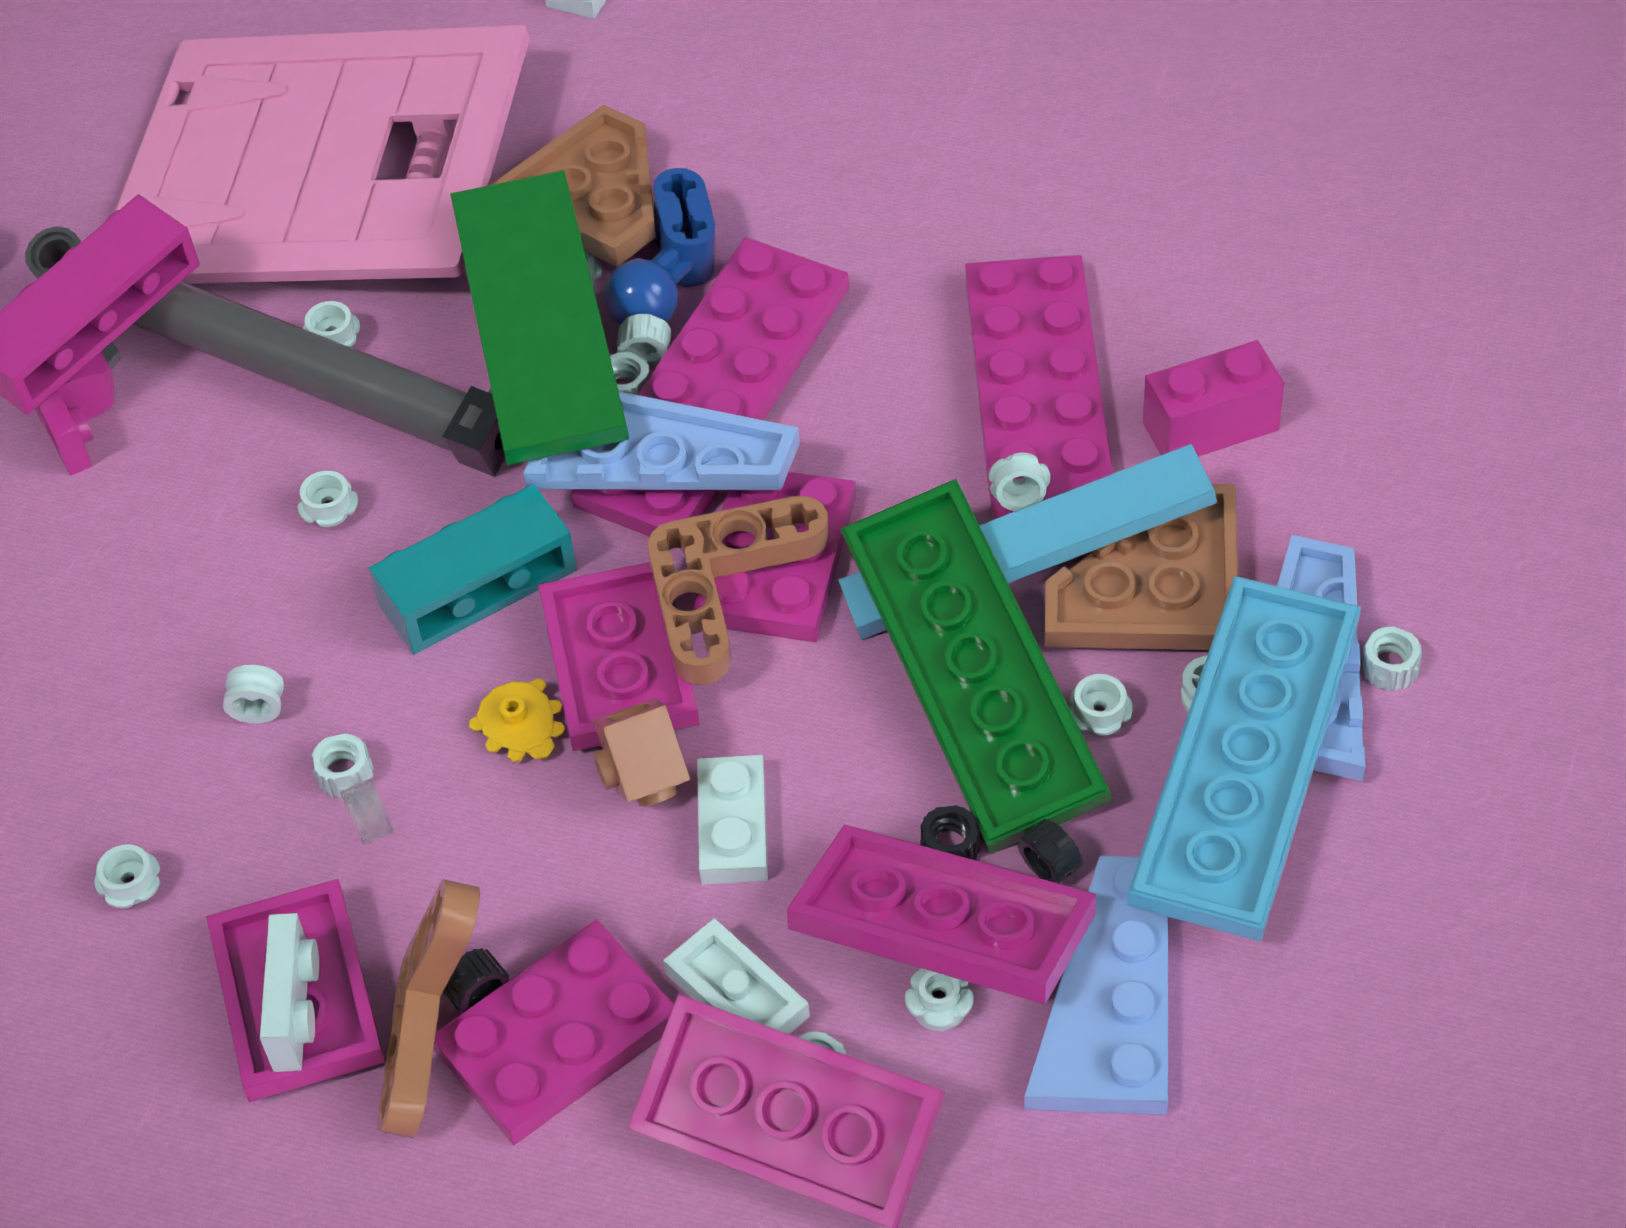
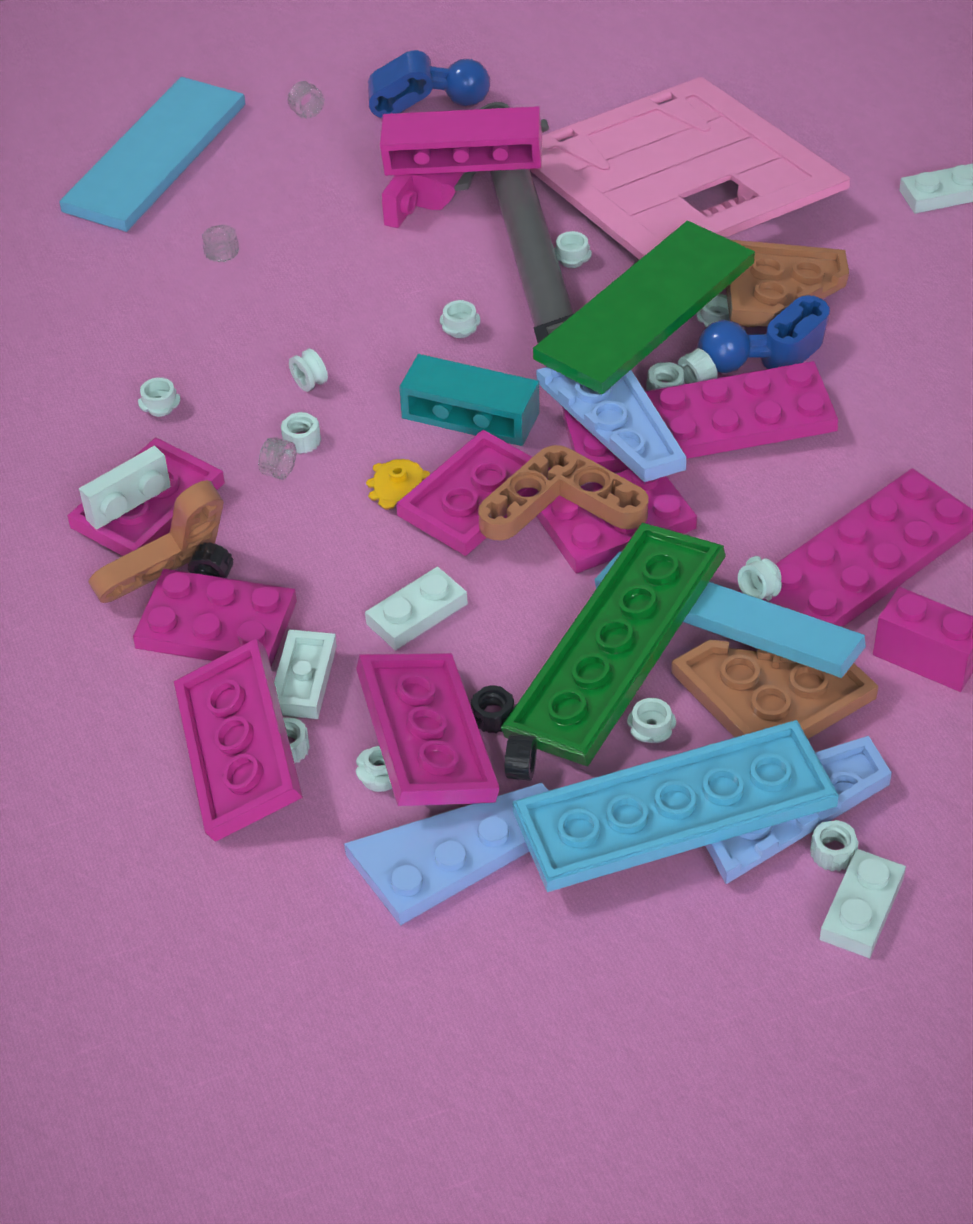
camera: 50 degrees right, 5 degrees down
(640, 753) = (410, 536): nougat brick -> none
(1480, 684) = (862, 903): none -> light aqua plate

